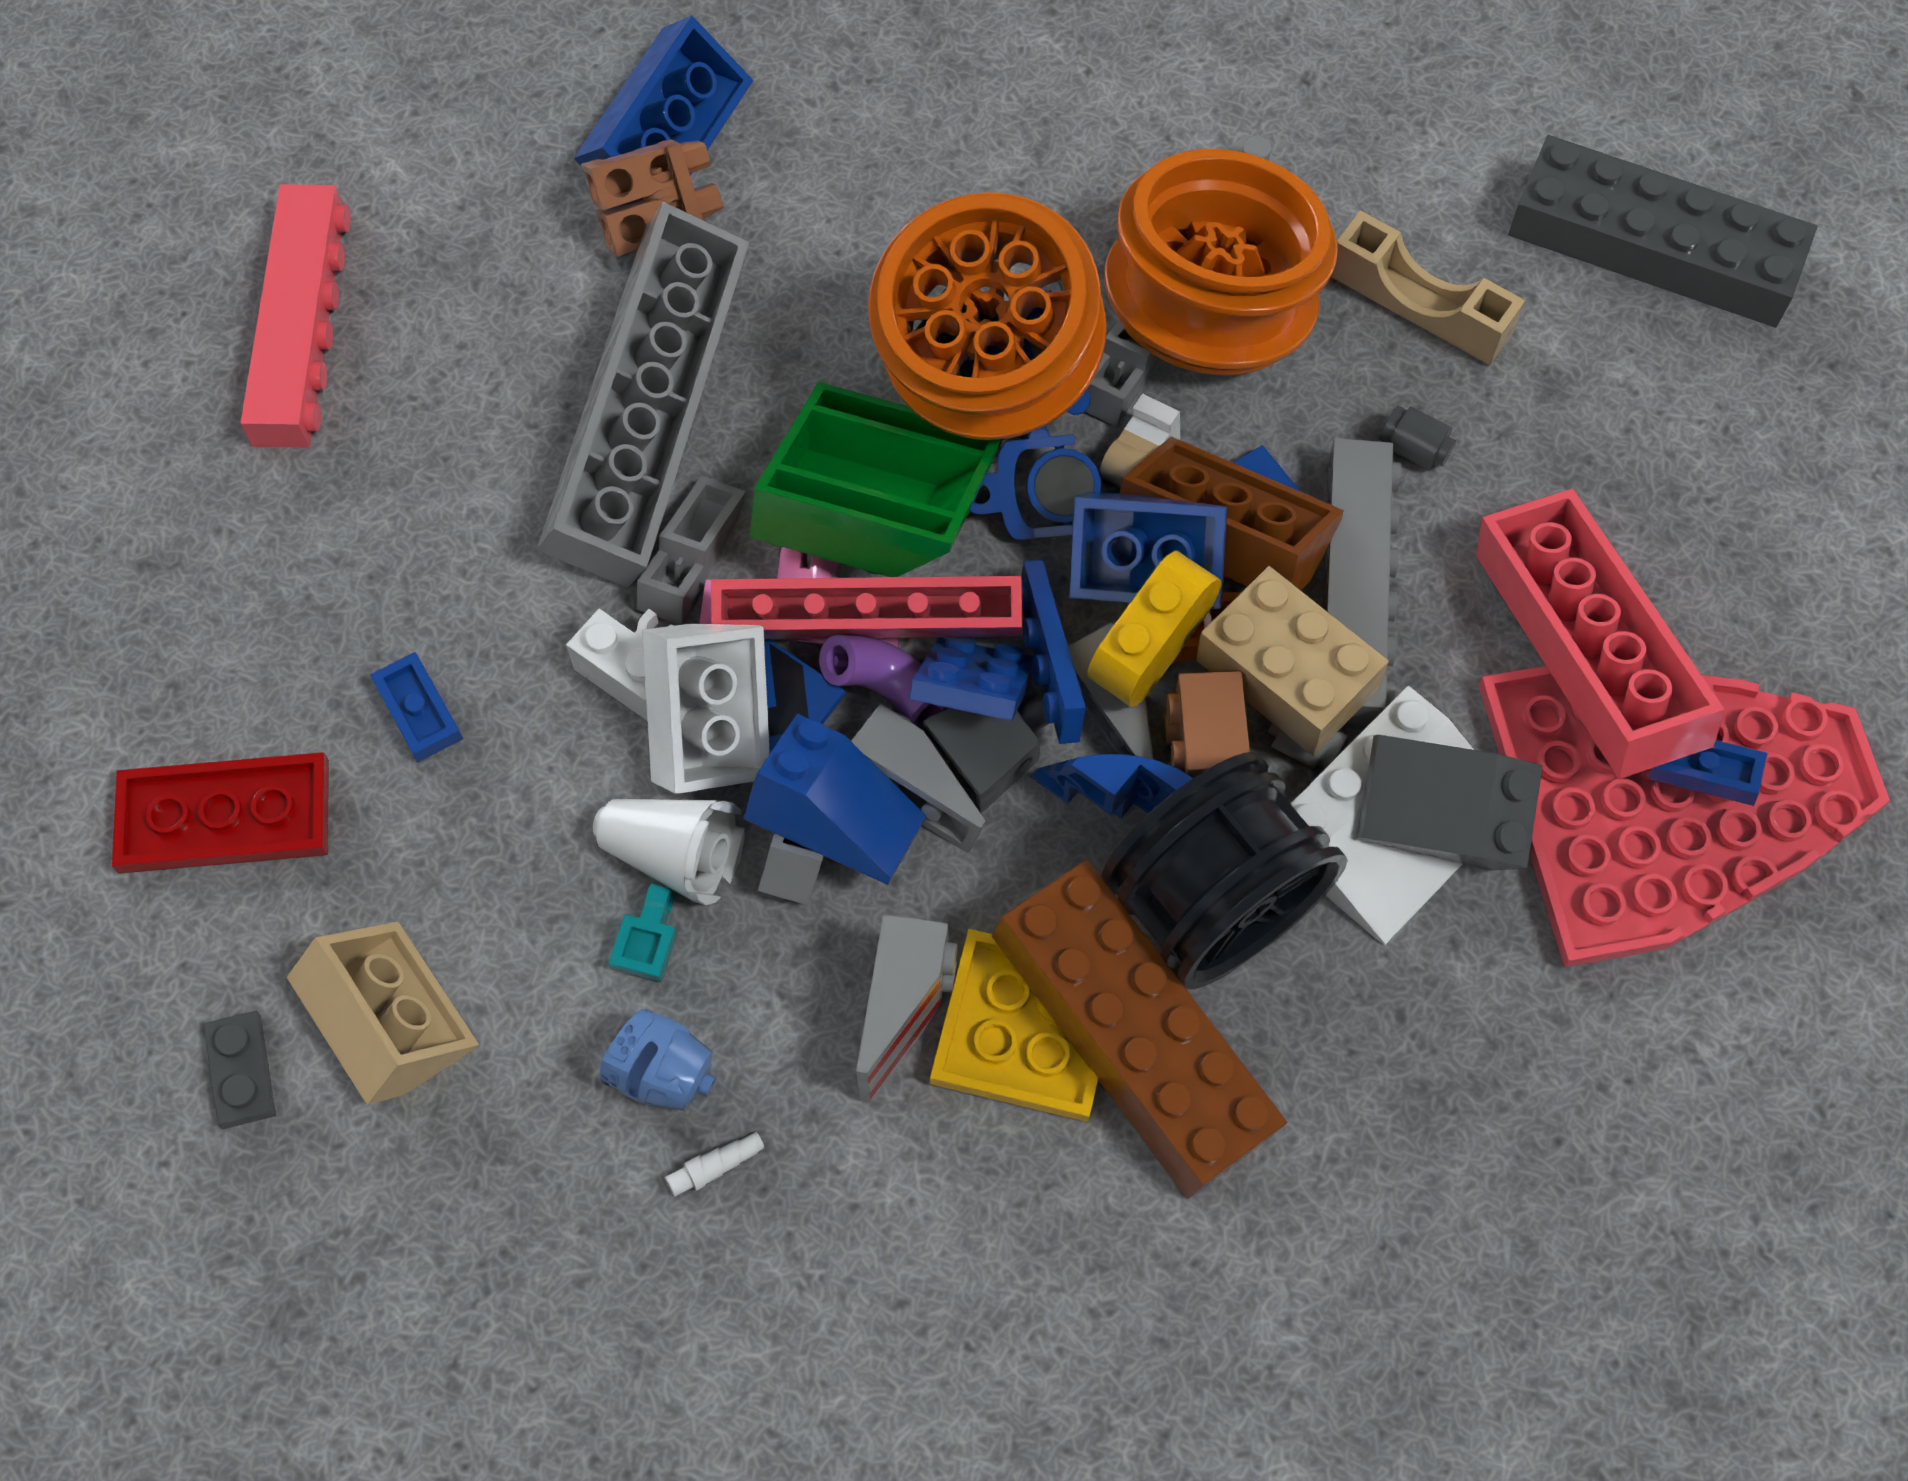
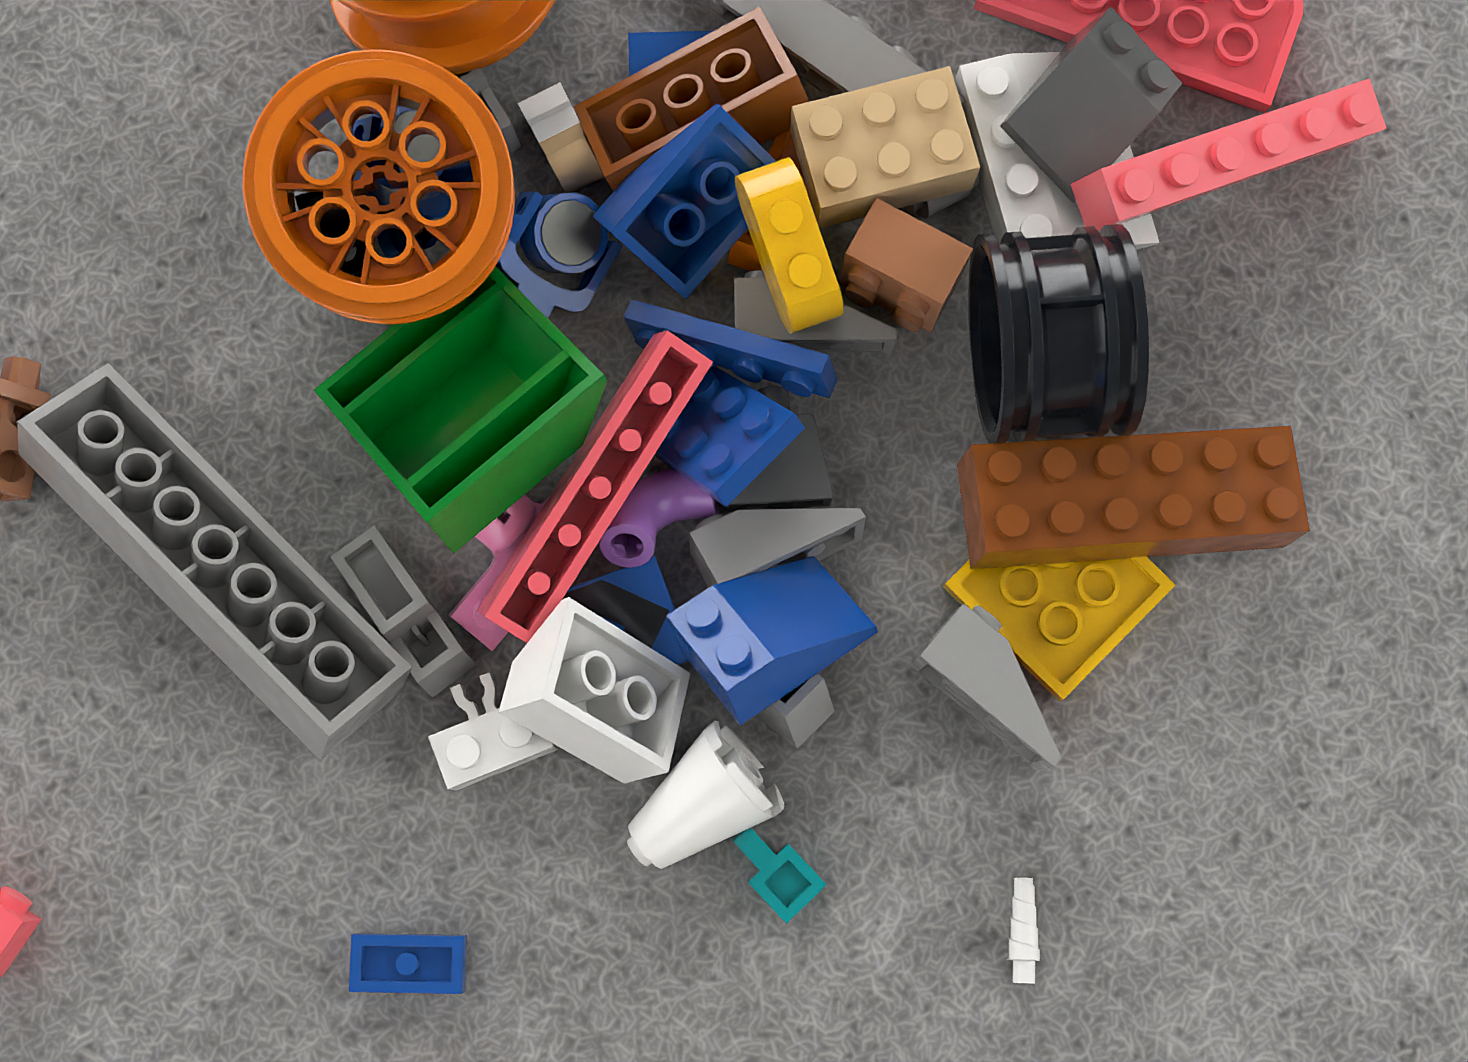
camera: 60 degrees left, 15 degrees up
(657, 1062) = (920, 907): medium blue helmet -> none
(1112, 781) = (897, 376): blue slope -> none
(1490, 938) = (1228, 155): none -> coral brick

